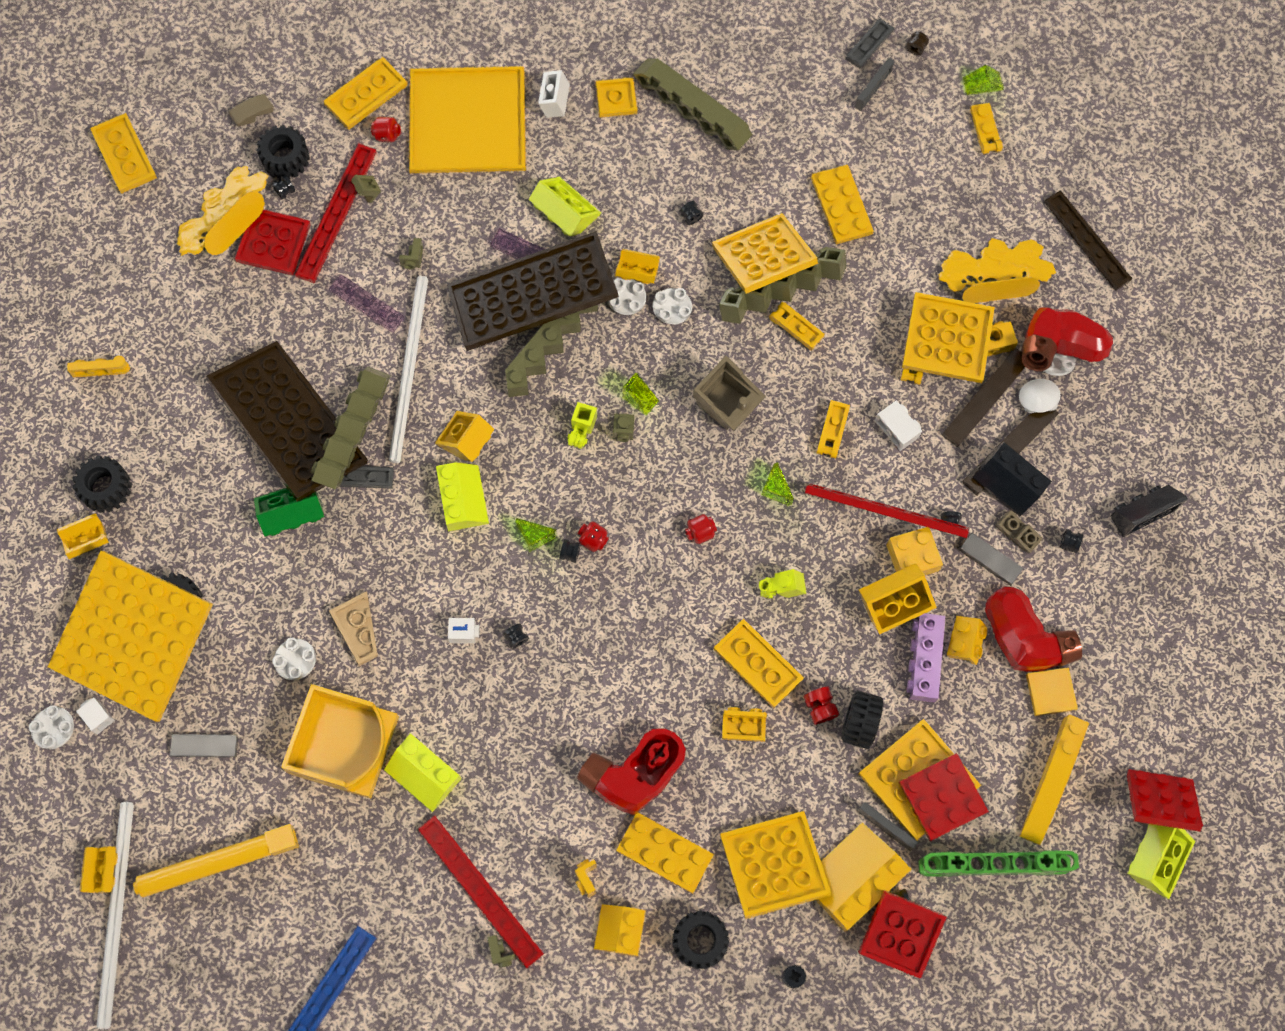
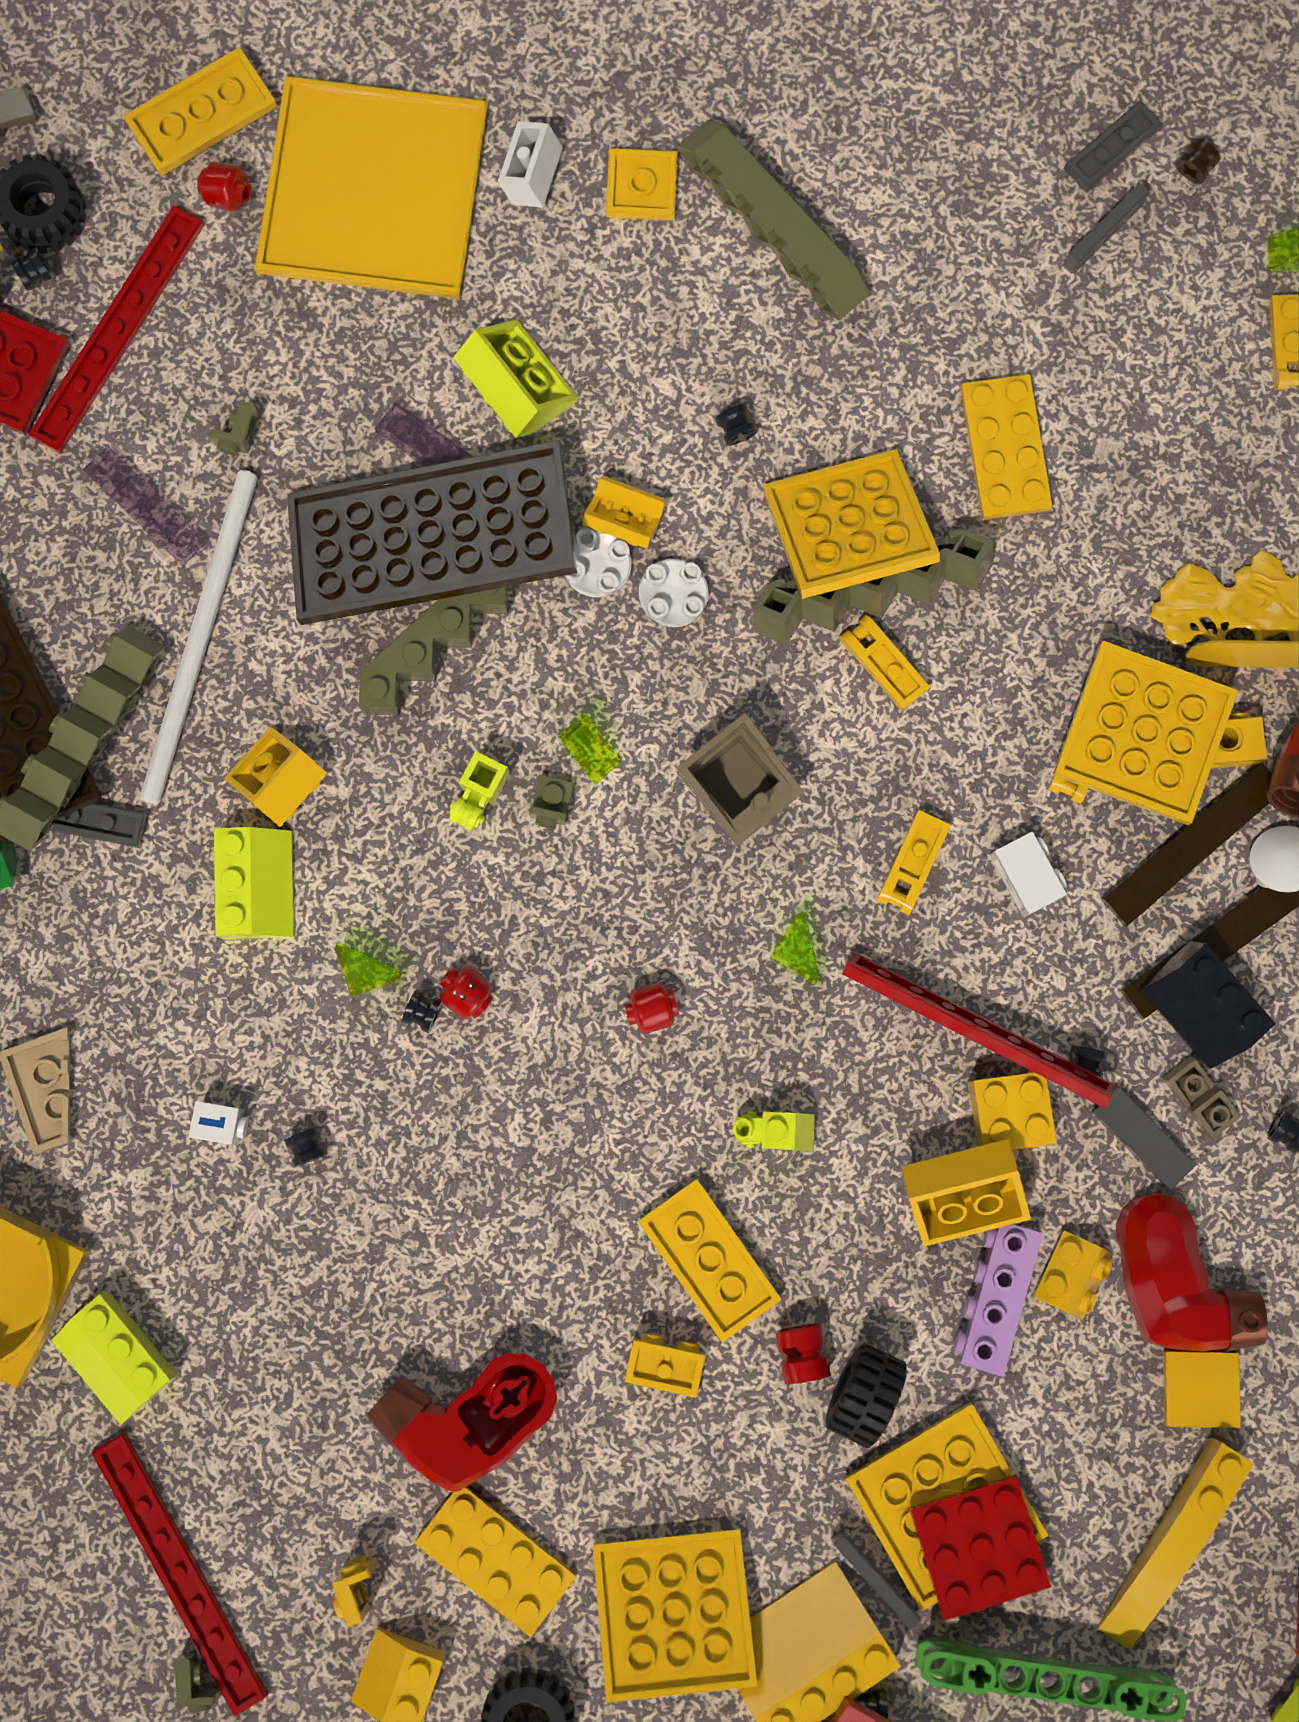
camera: 10 degrees right, 10 degrees up
(366, 186) = (173, 291): olive bracket -> none

